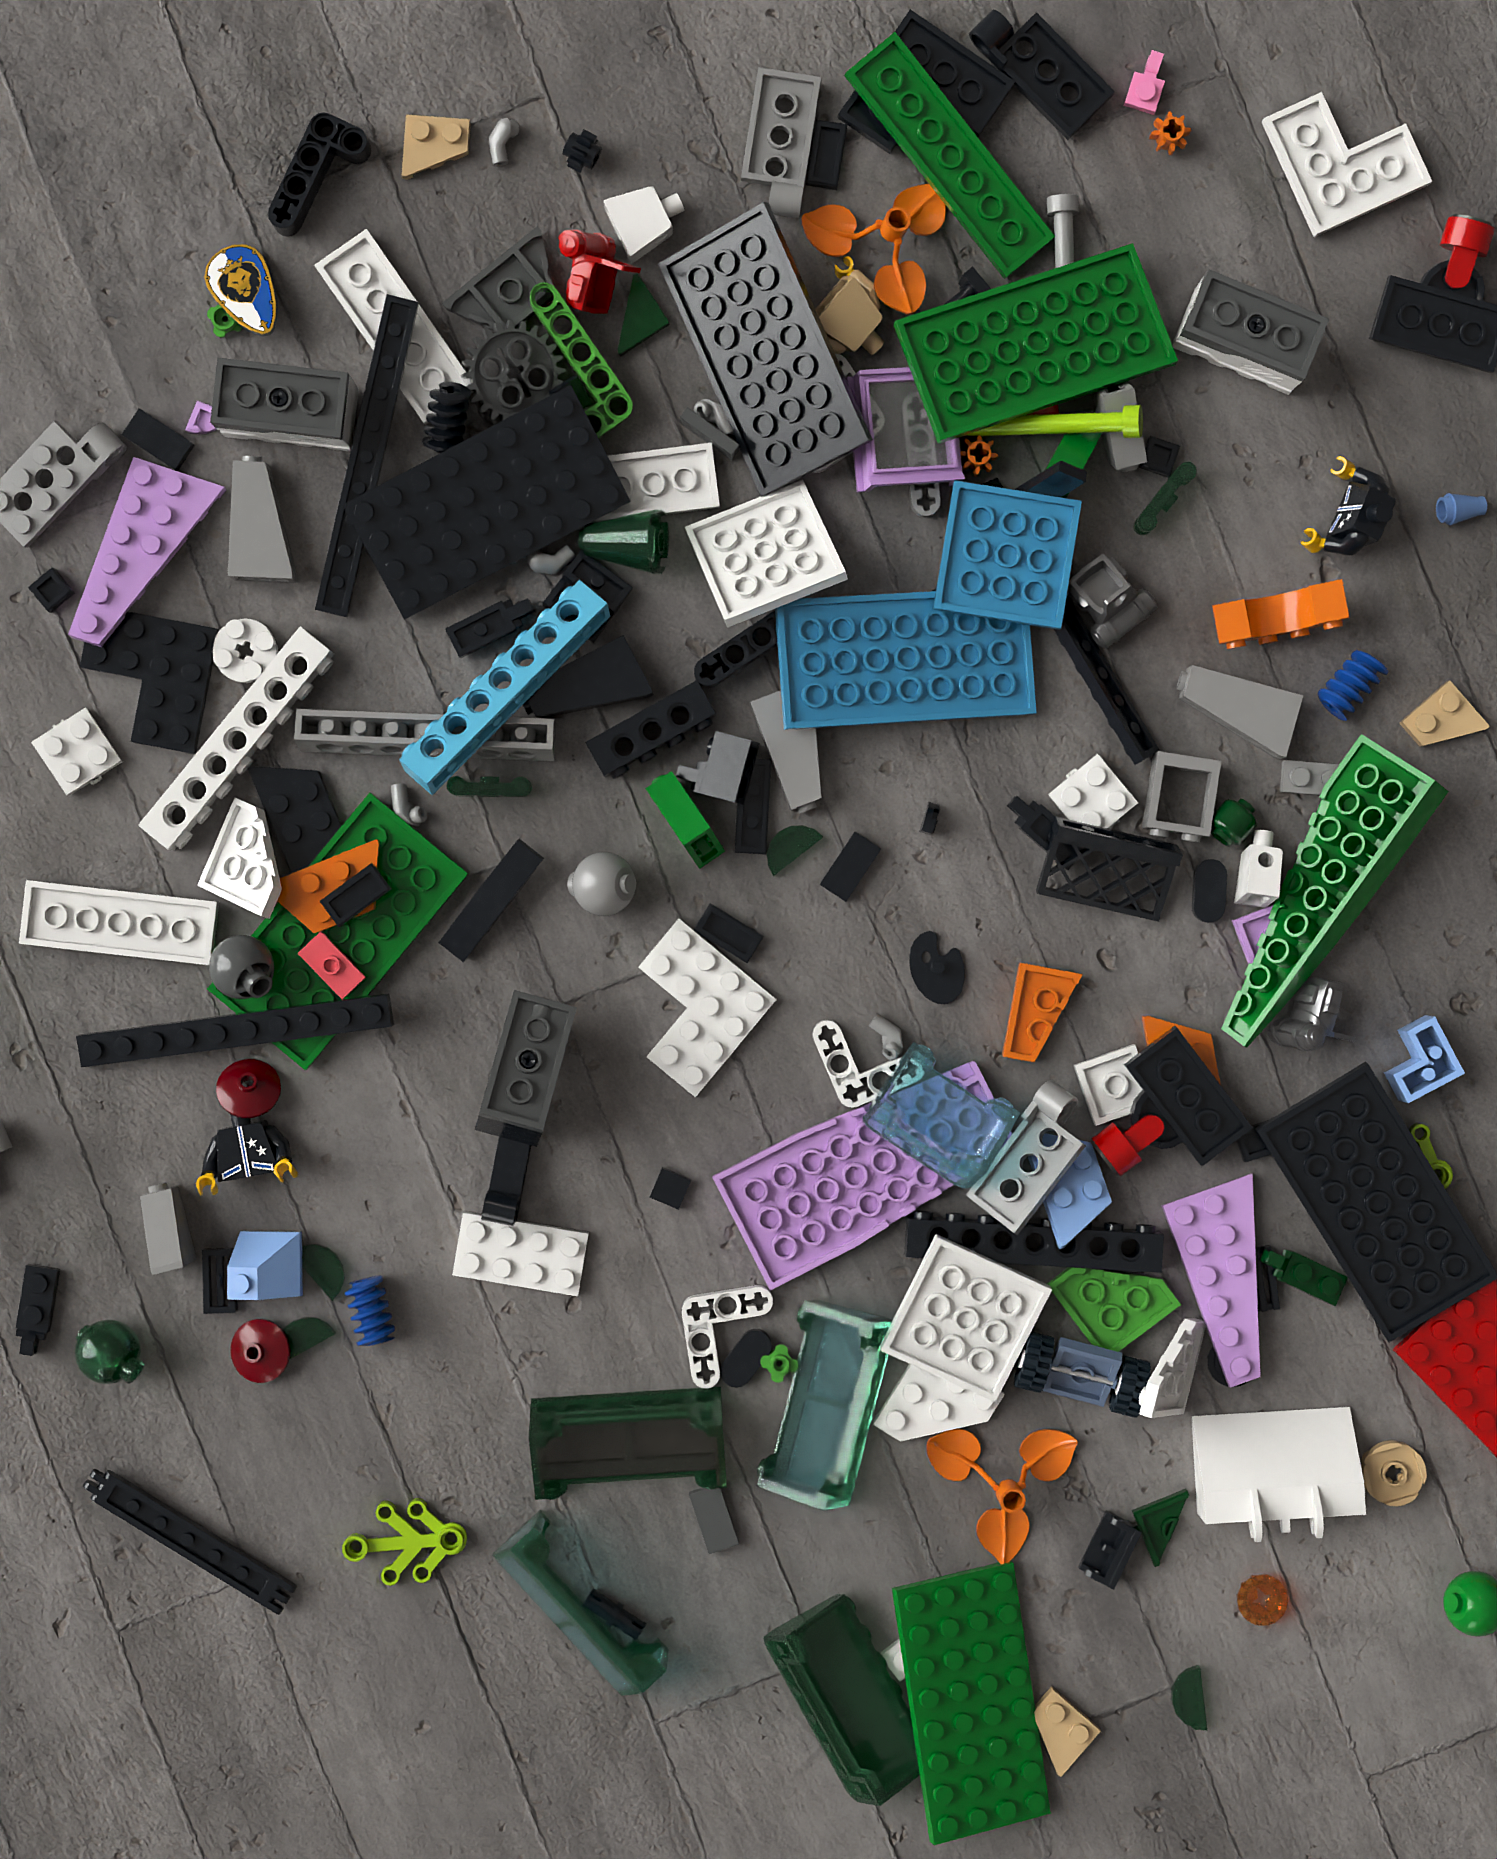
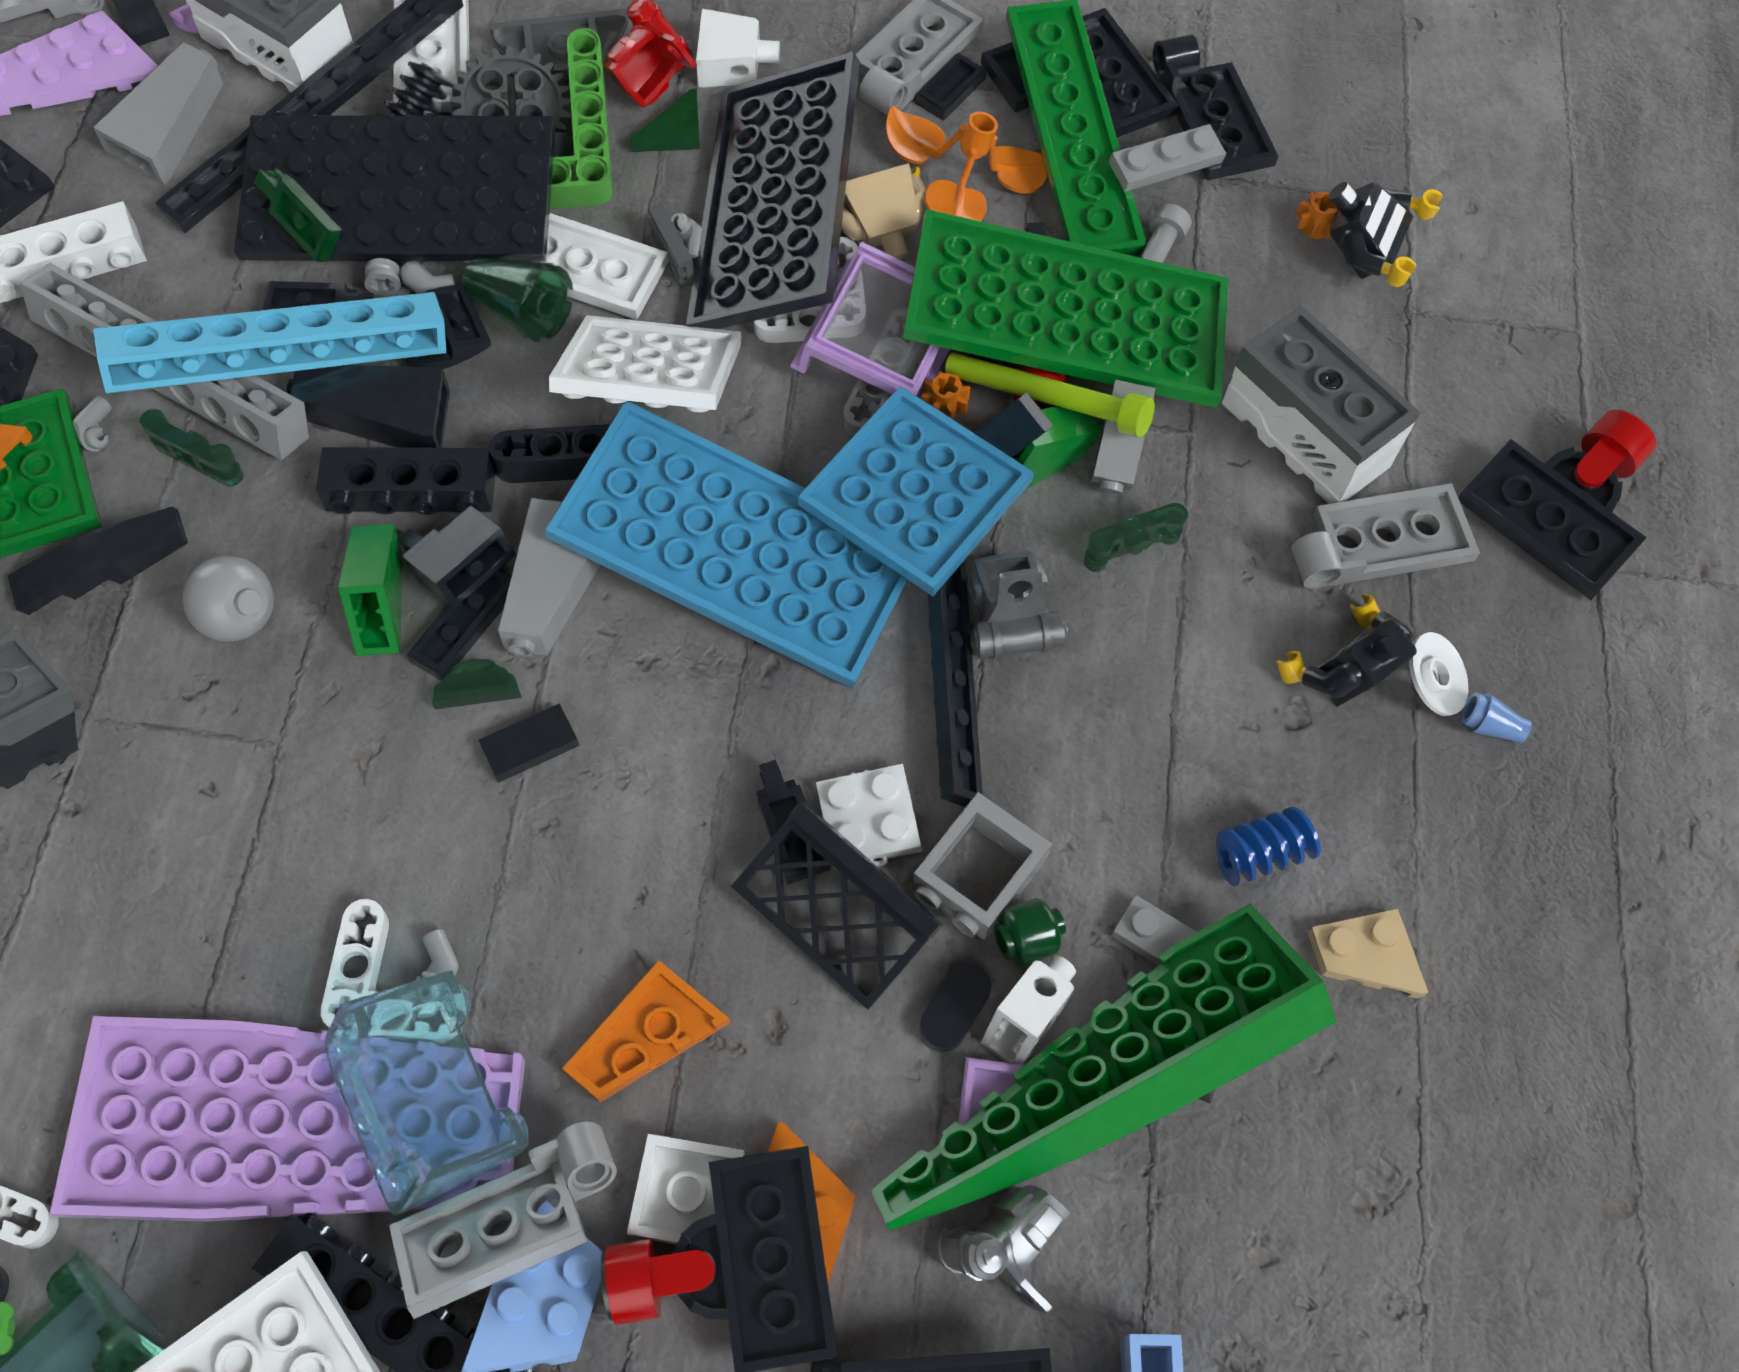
camera: 25 degrees right, 25 degrees down
(236, 634) = (59, 193): white plate -> none
(442, 571) = (299, 214): none -> dark green hinge
(520, 577) = (382, 277): none -> light grey bush
(670, 1188) = (37, 1007): black tile -> none
(719, 1002) = (260, 825): white plate -> none
(728, 933) = (335, 740): black tile -> none
(930, 818) = (655, 736): black tile -> none
(942, 976) = (554, 931): black piece -> none
(1035, 149) = (1167, 157): none -> light grey plate
(1146, 88) = (1315, 173): bright pink plate -> none
(1160, 456) = (1150, 494): black tile -> none
(1216, 131) = (1373, 226): none -> black torso
(1247, 708) = (1114, 803): light grey slope -> none
(1281, 614) = (1210, 721): orange brick -> none
(1338, 182) = (1487, 341): white plate -> none
(1355, 401) = (1328, 563): none -> light grey hinge
(1413, 495) = (1439, 674): none -> white dish

